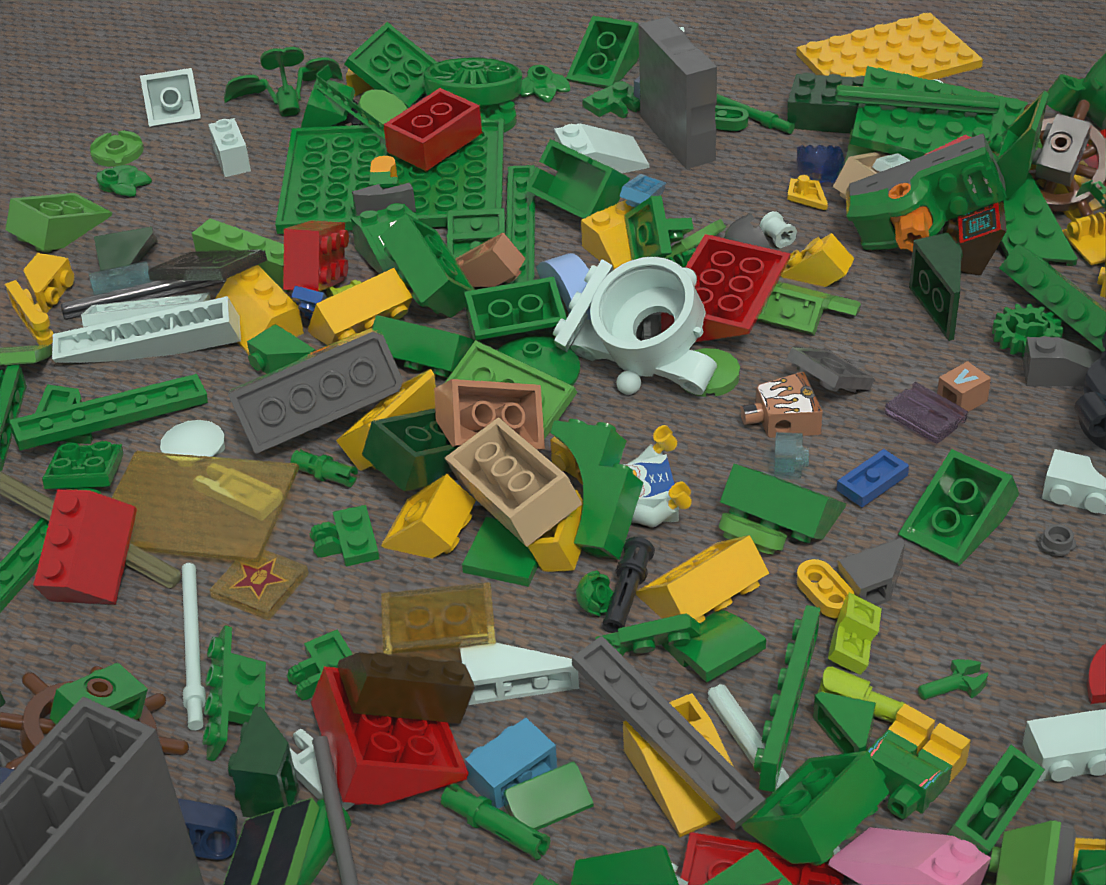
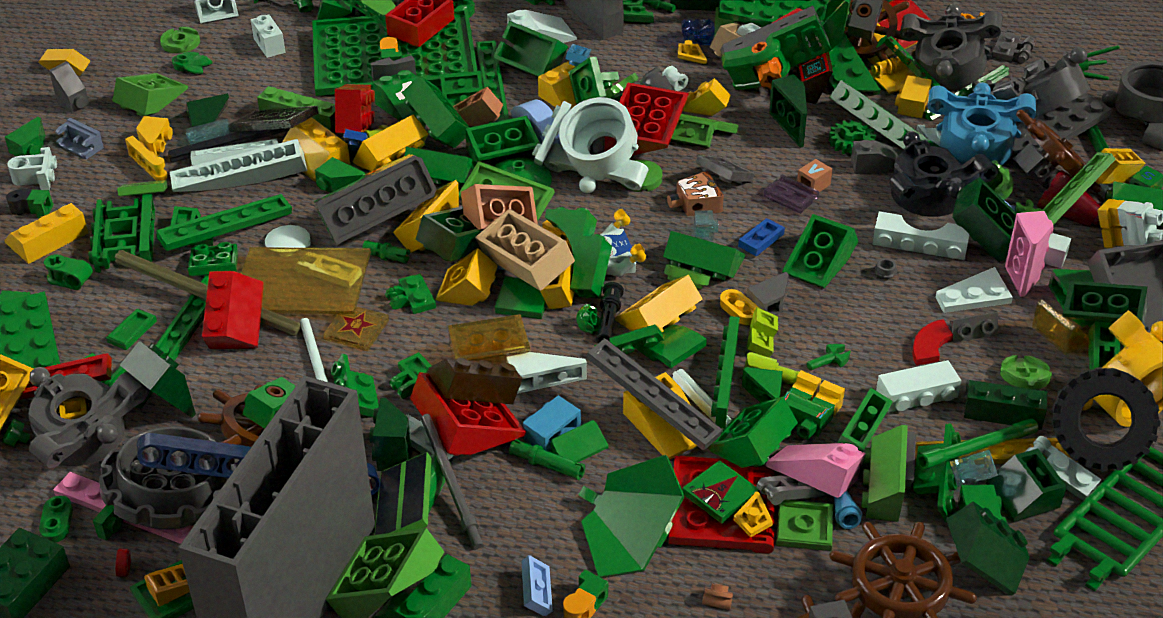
camera: 10 degrees left, 0 degrees up
(738, 135) = (637, 14): none -> green plate

